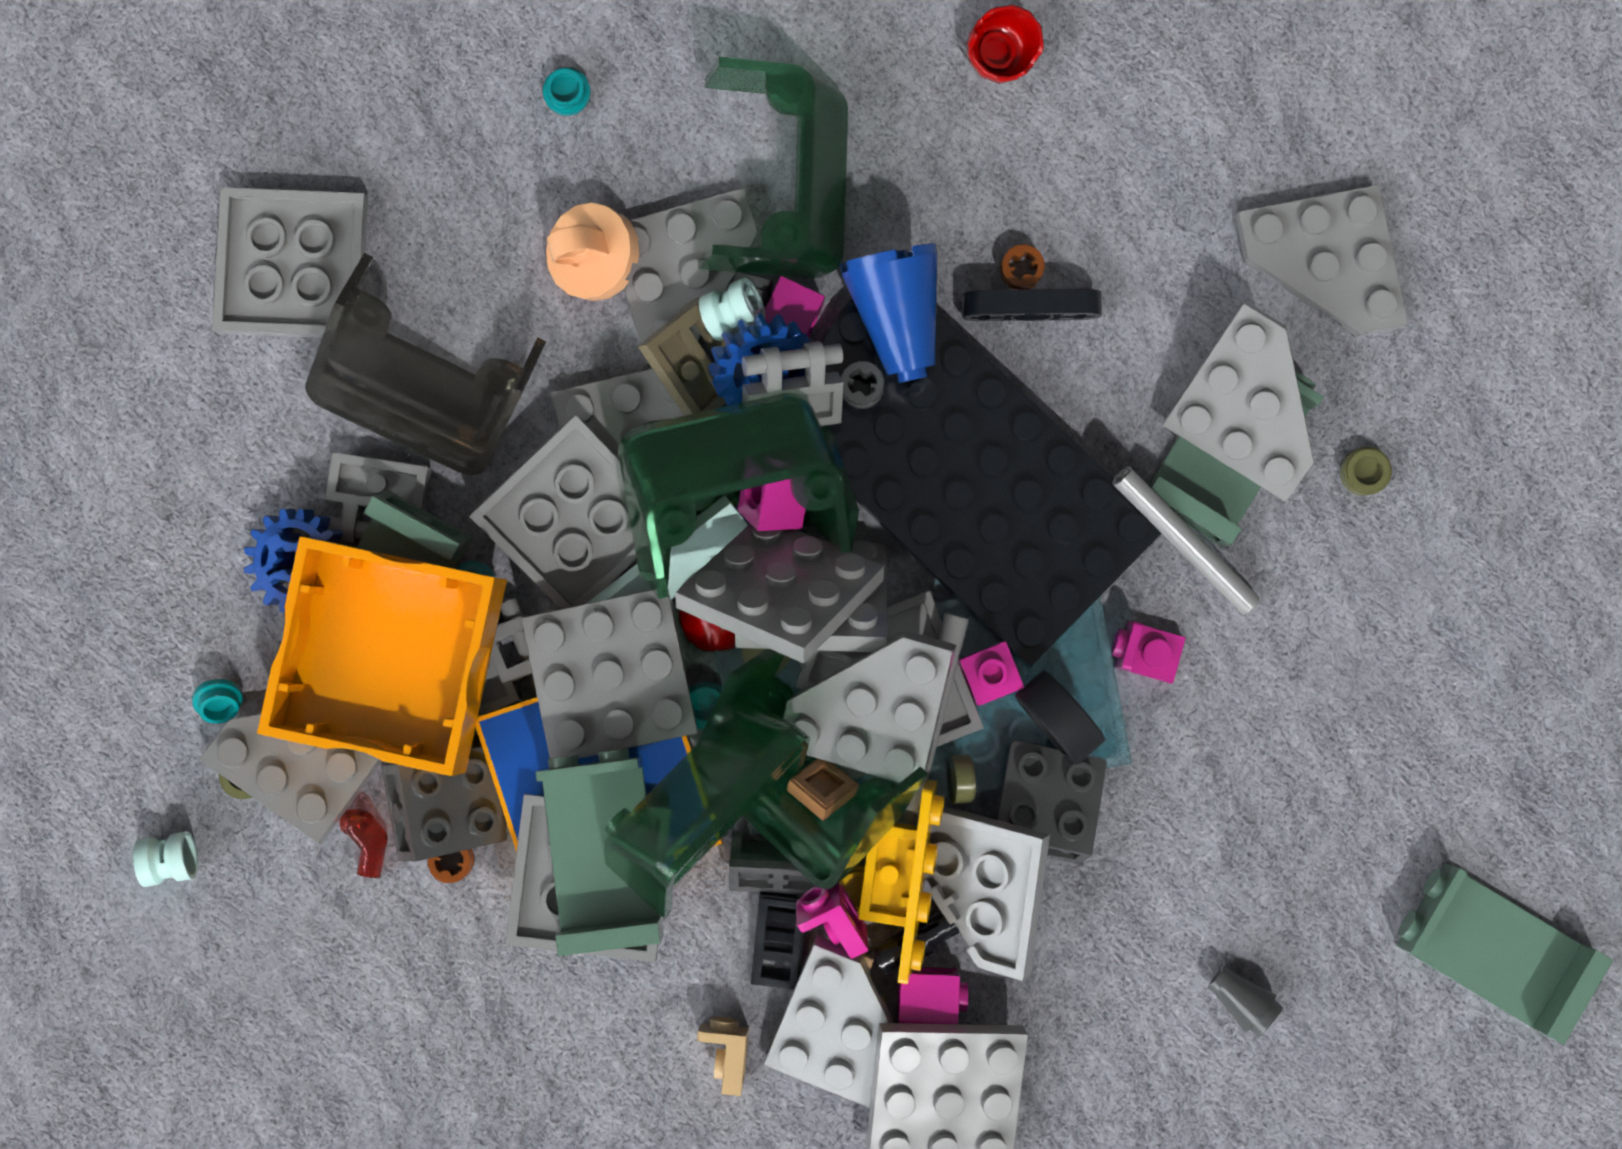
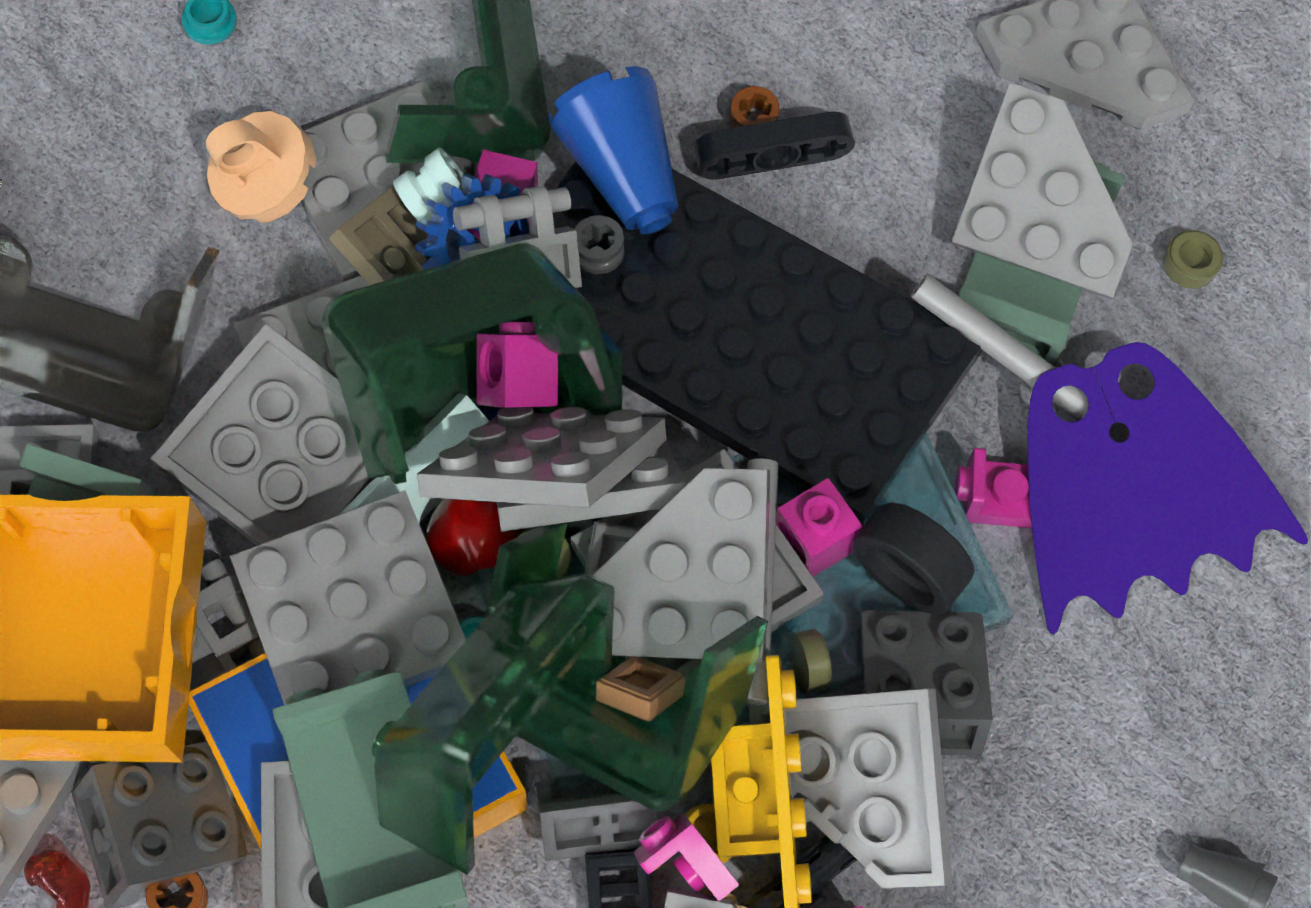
camera: 15 degrees left, 20 degrees down
(1268, 684) = (1142, 503): none -> dark purple piece

